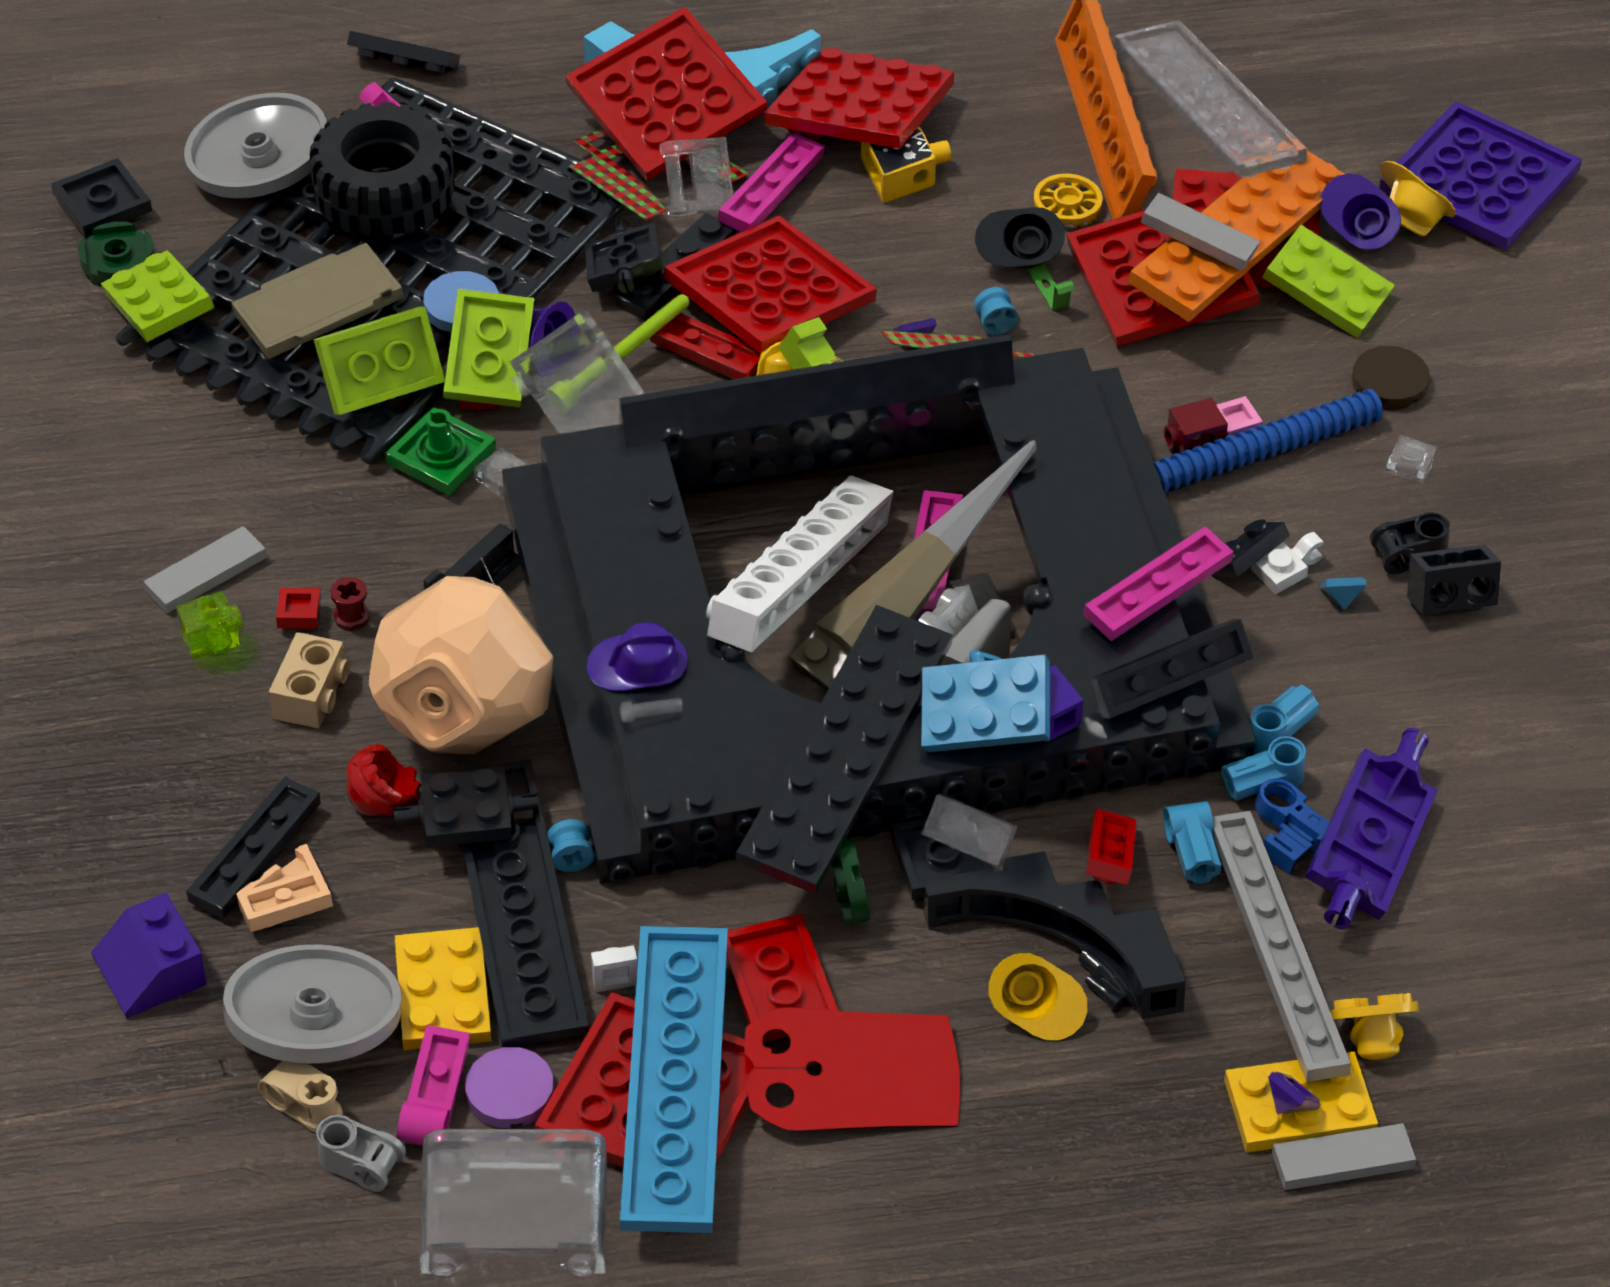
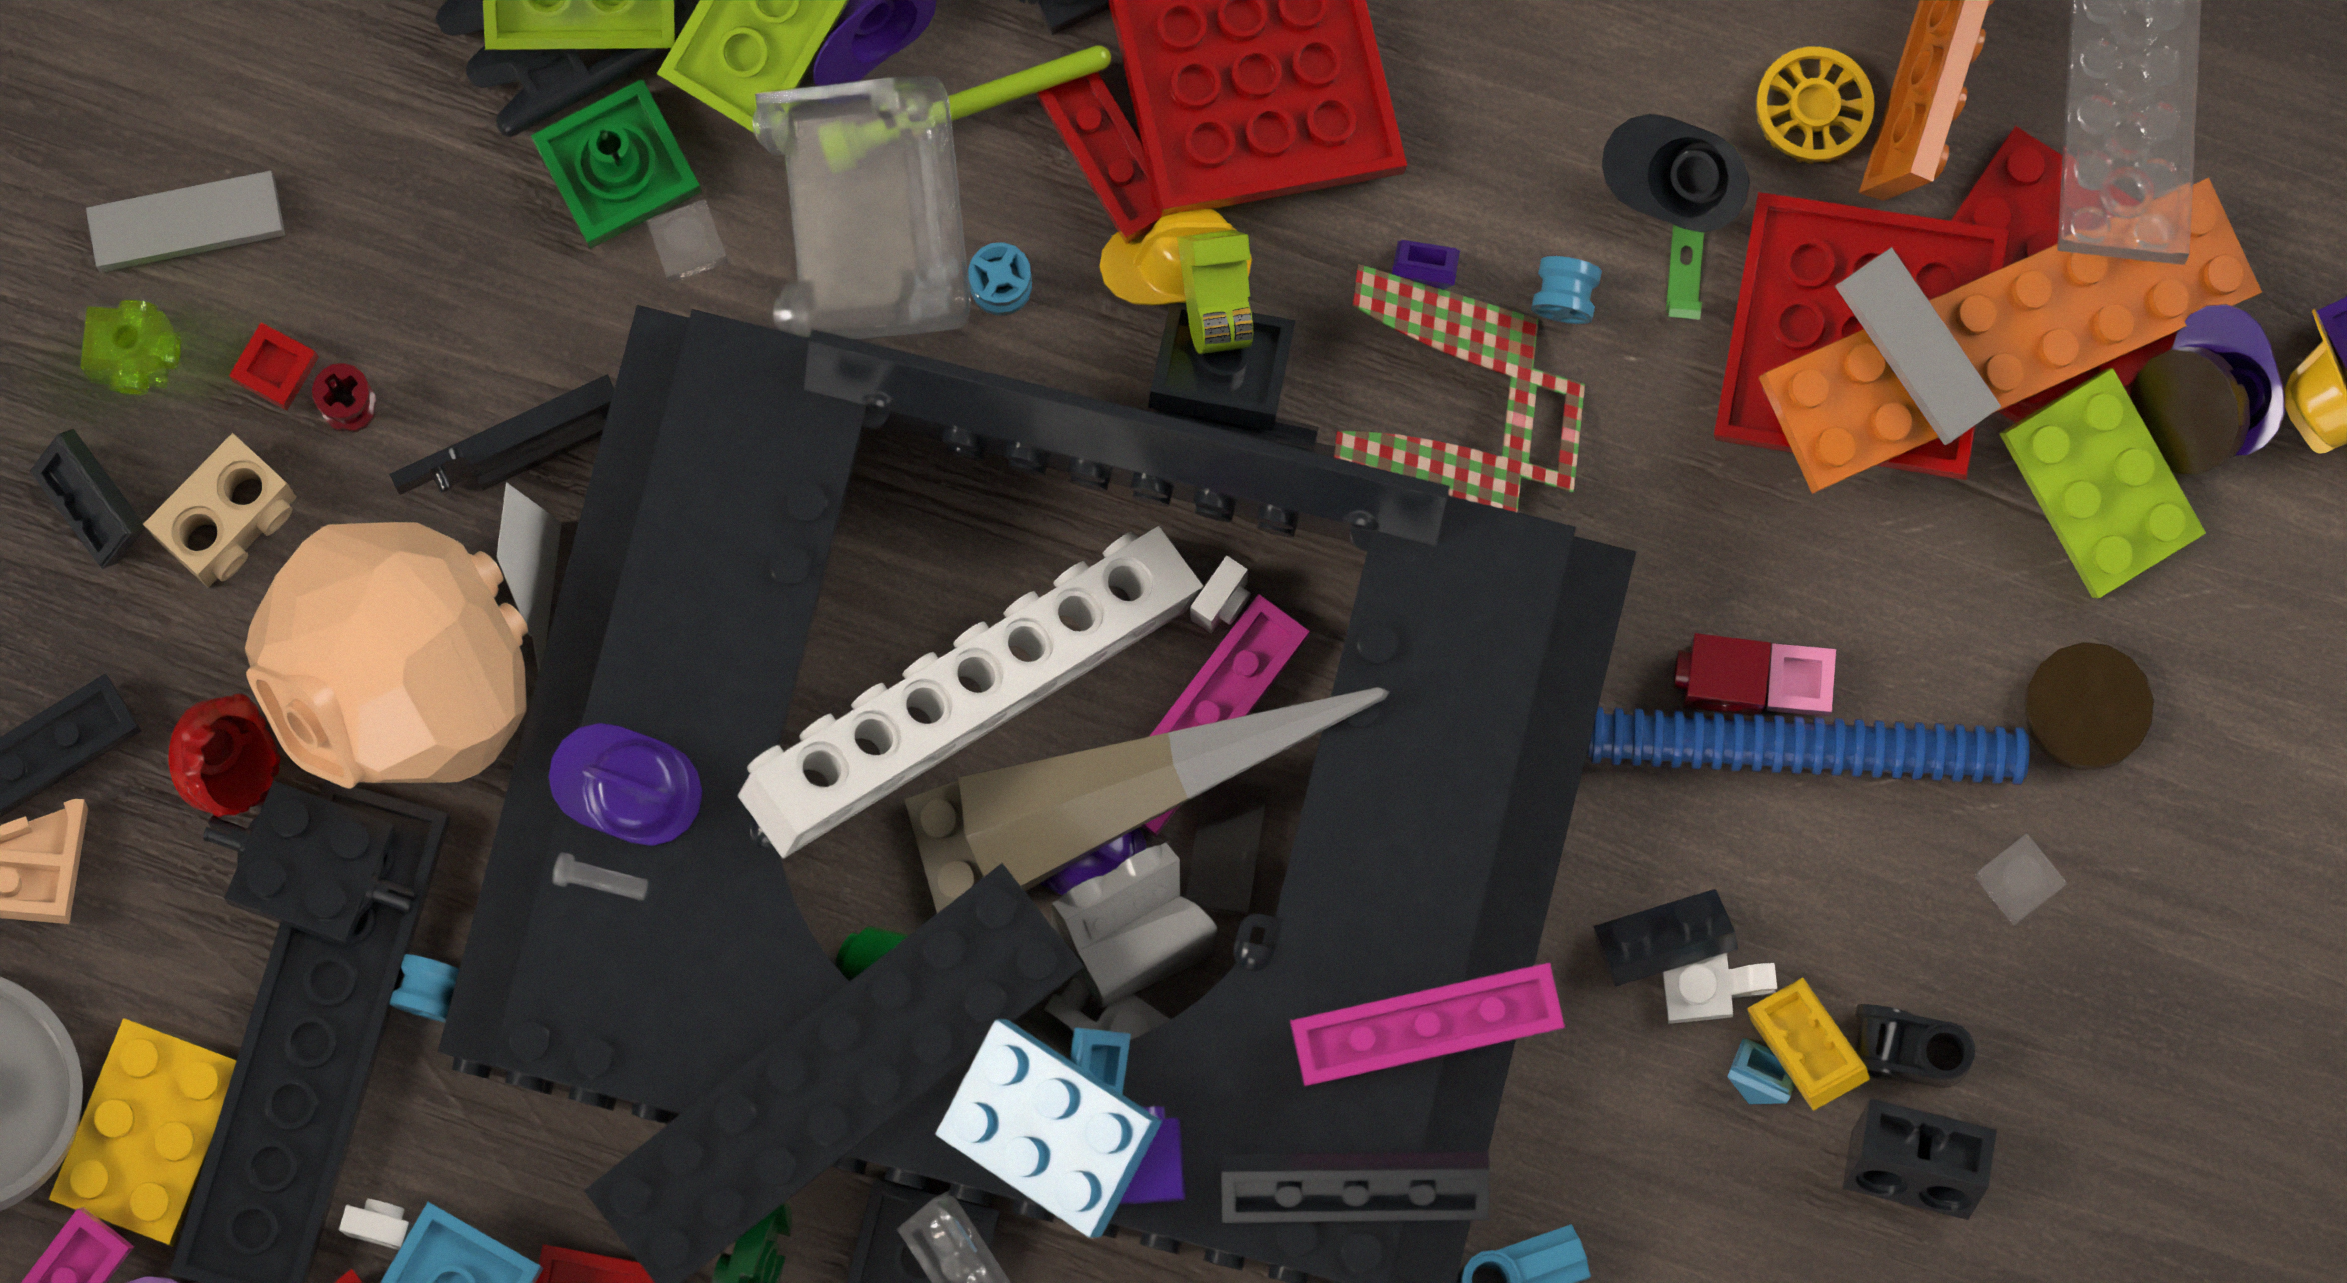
camera: 30 degrees right, 30 degrees up
(224, 705) = (87, 498): none -> black plate
(904, 500) = (1222, 596): none -> white plate
(1353, 227) = (2192, 408): none -> dark brown tile
(1357, 559) = (1808, 1044): none -> yellow plate

